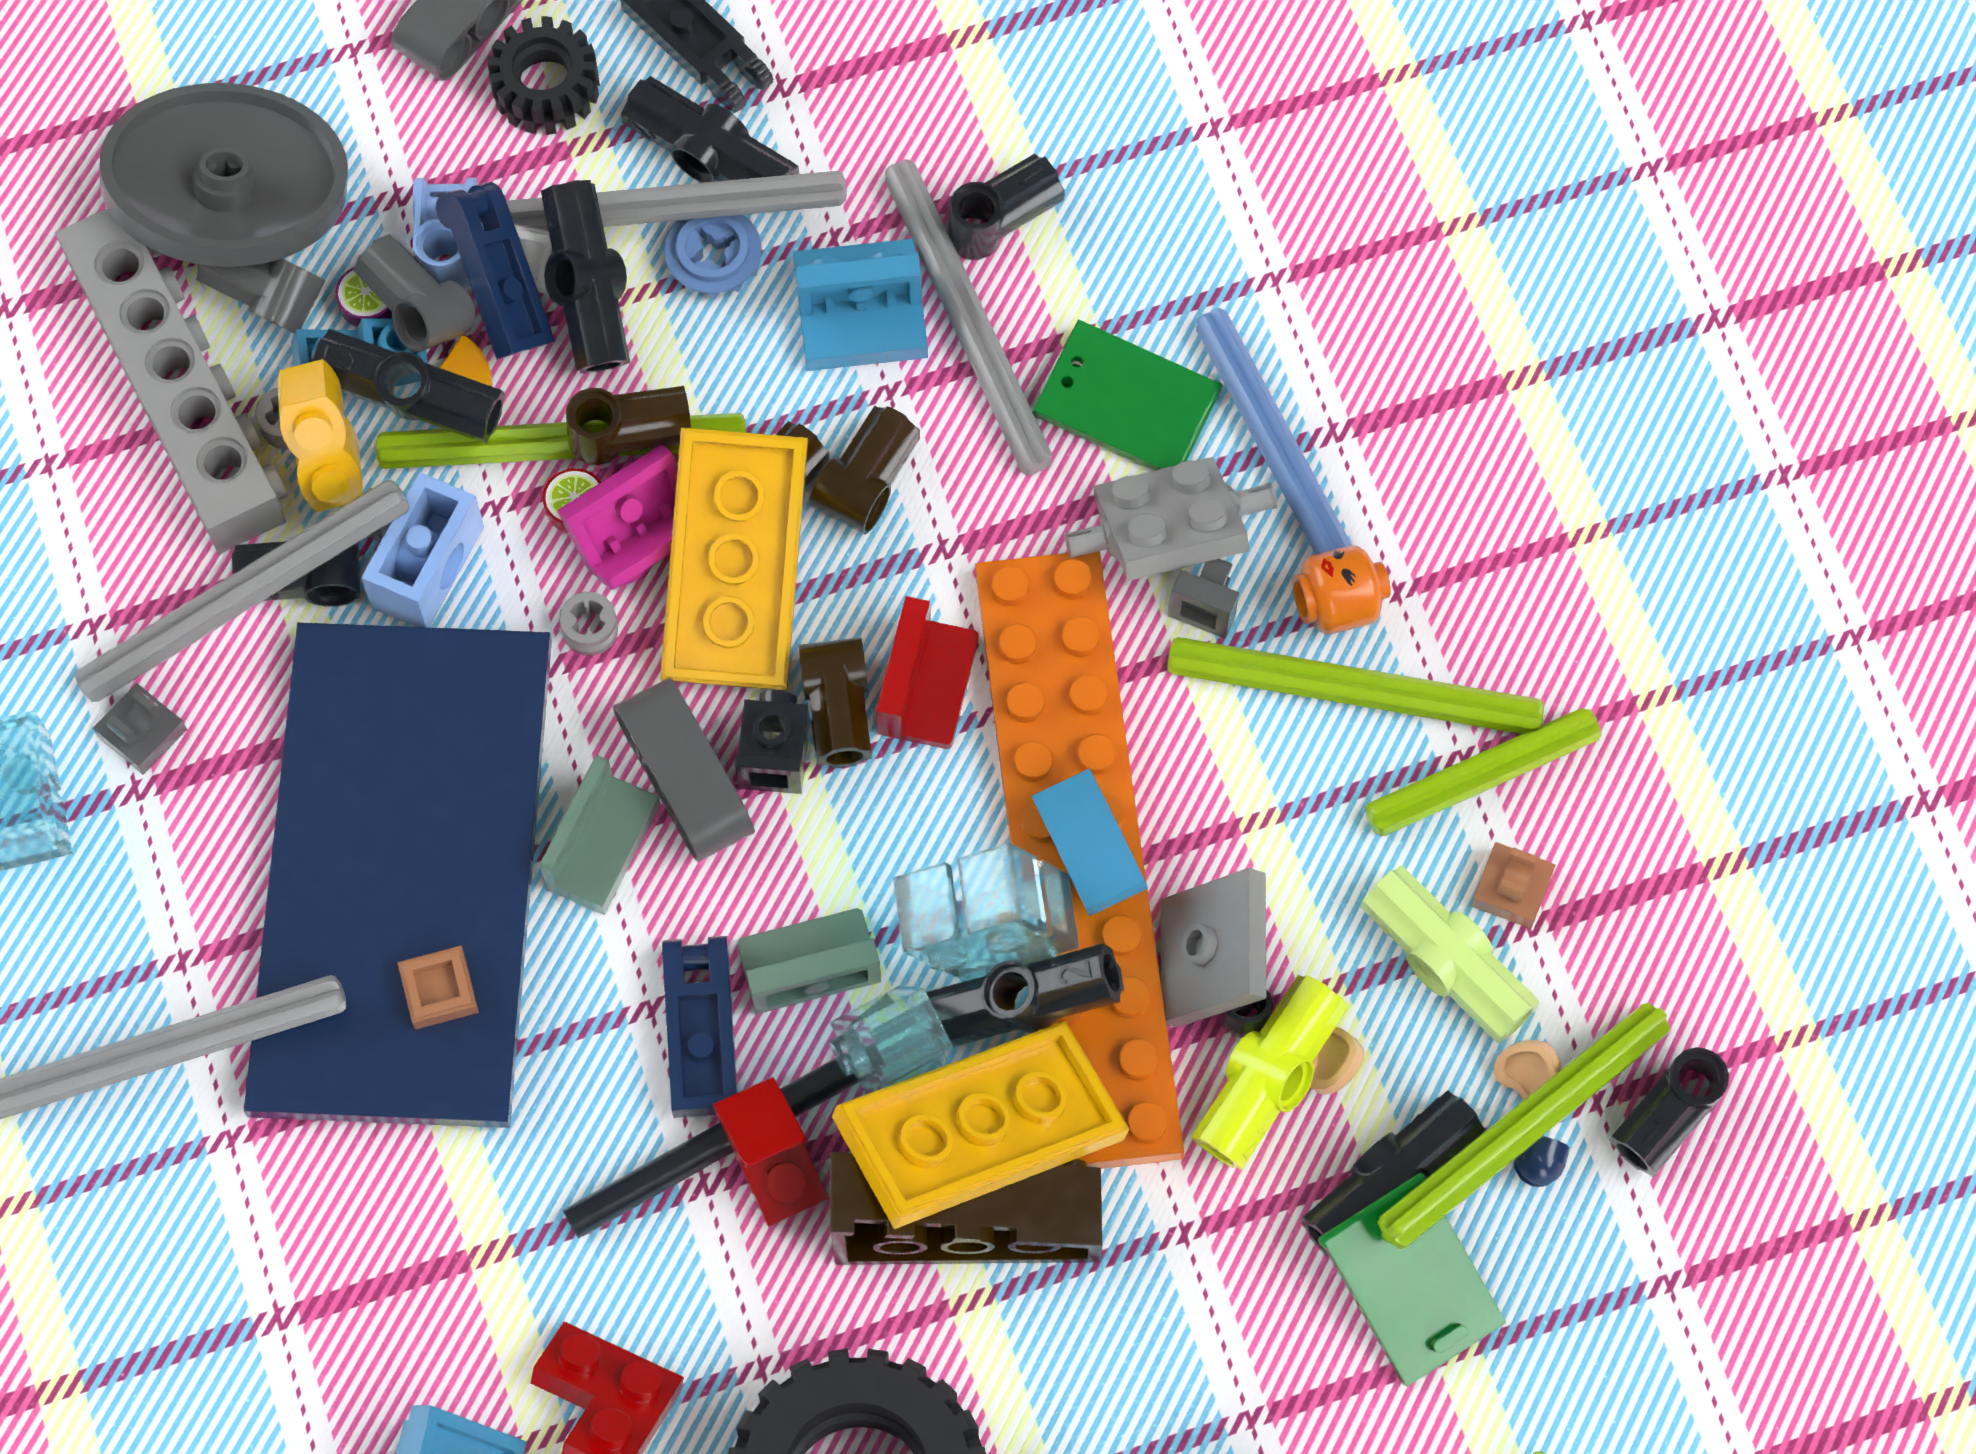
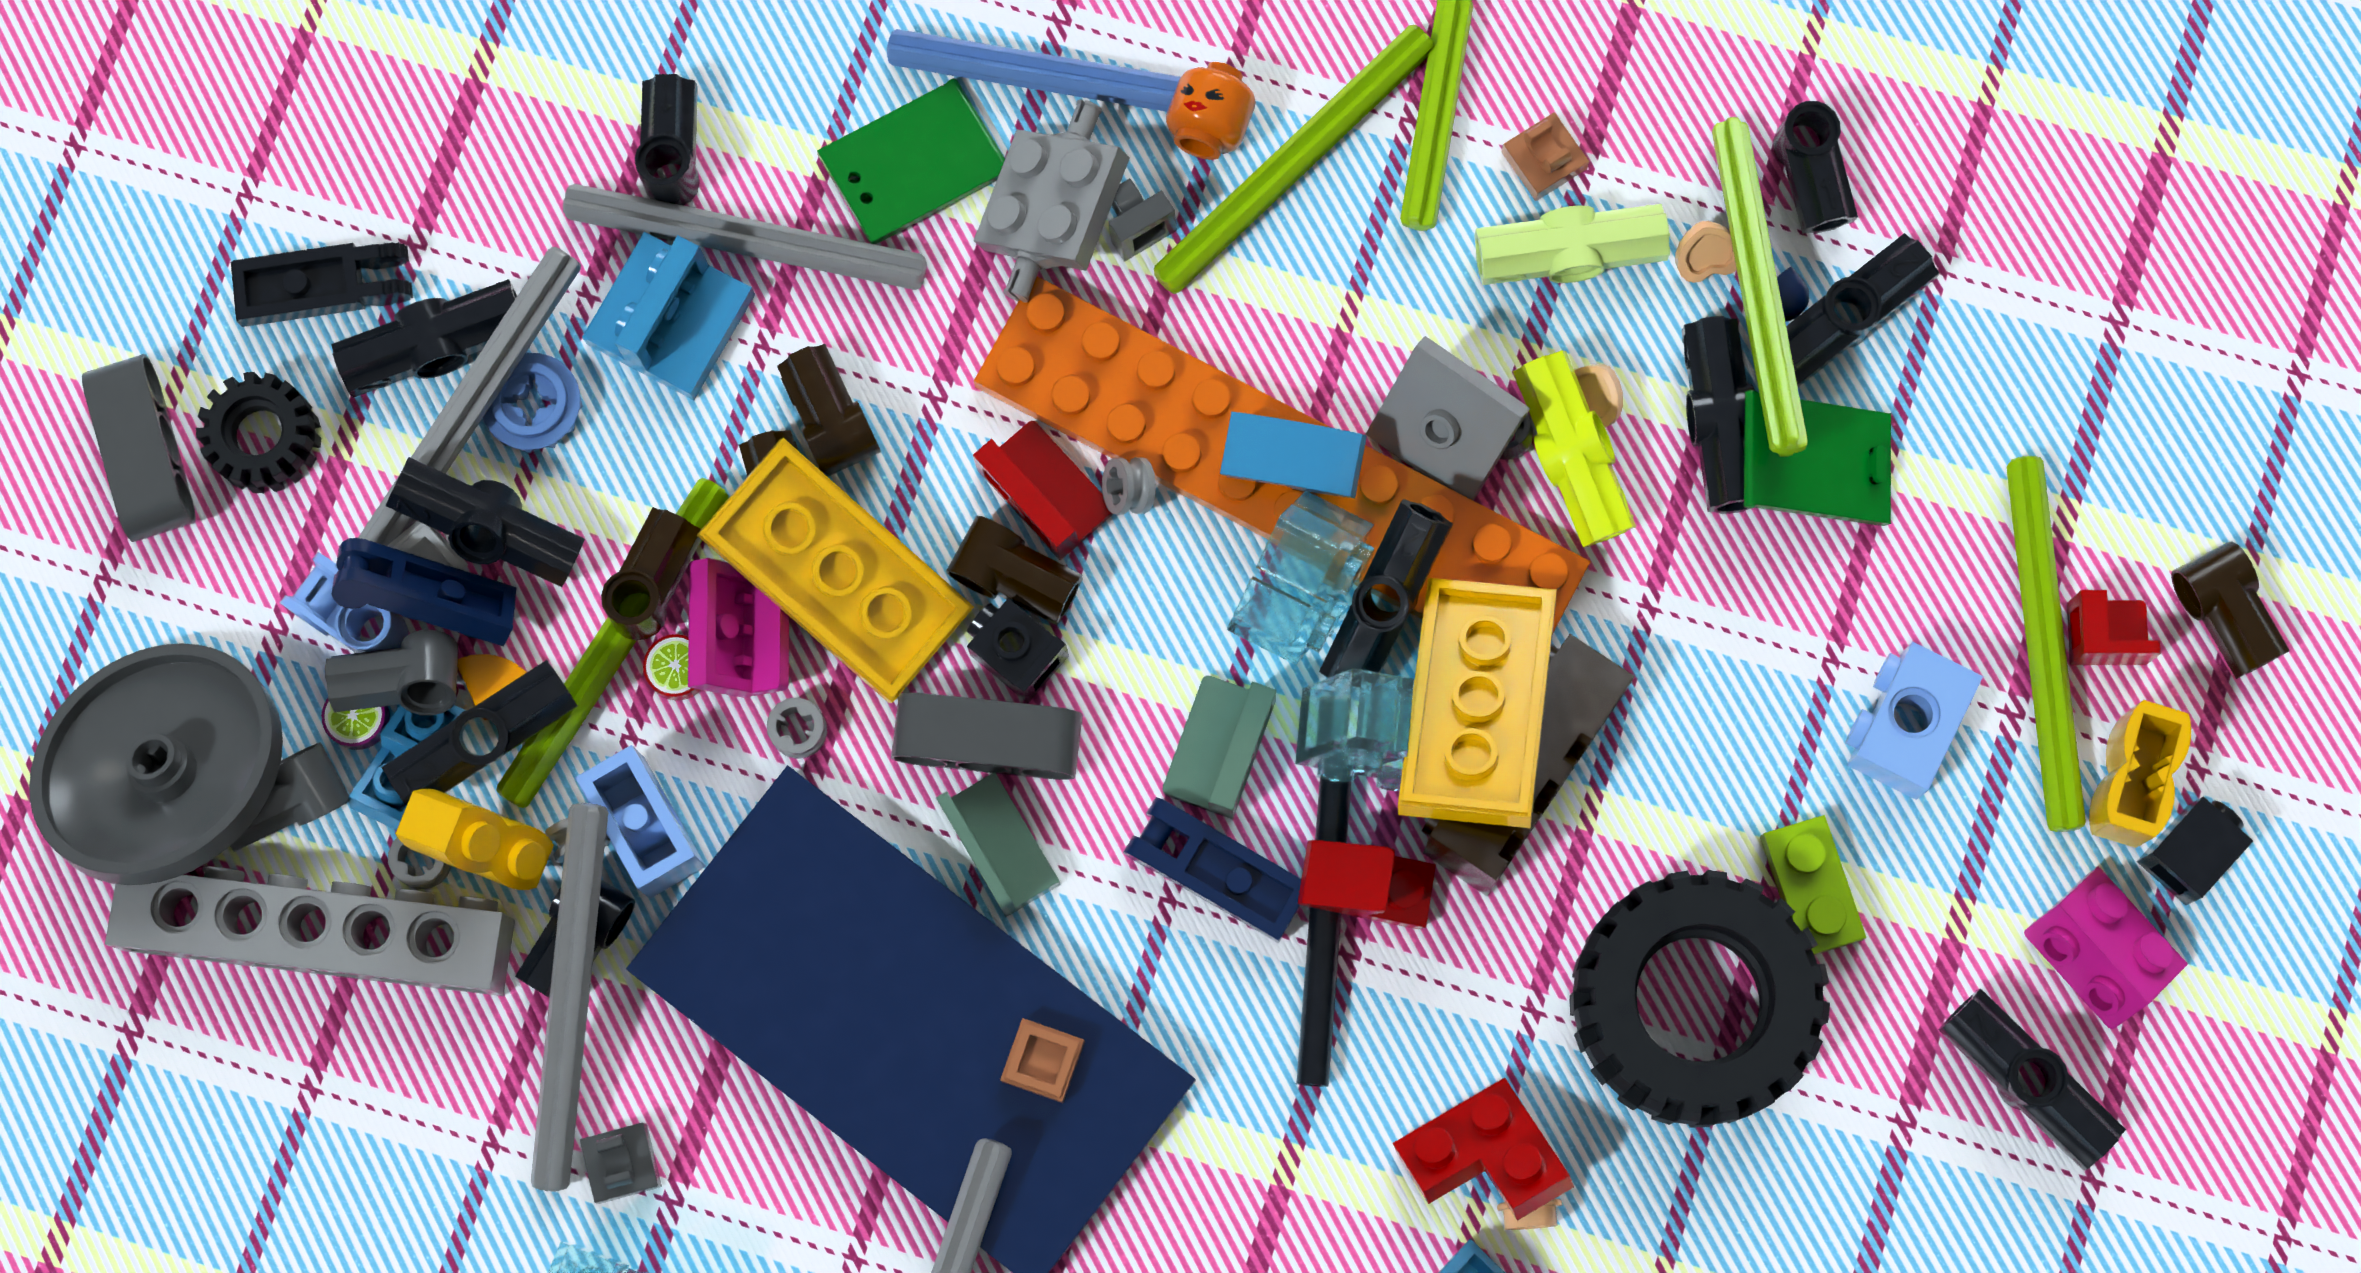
camera: 50 degrees left, 10 degrees up
(974, 738) = (1128, 485): none -> light grey bush
(1607, 1234) = (1874, 289): none -> black piece

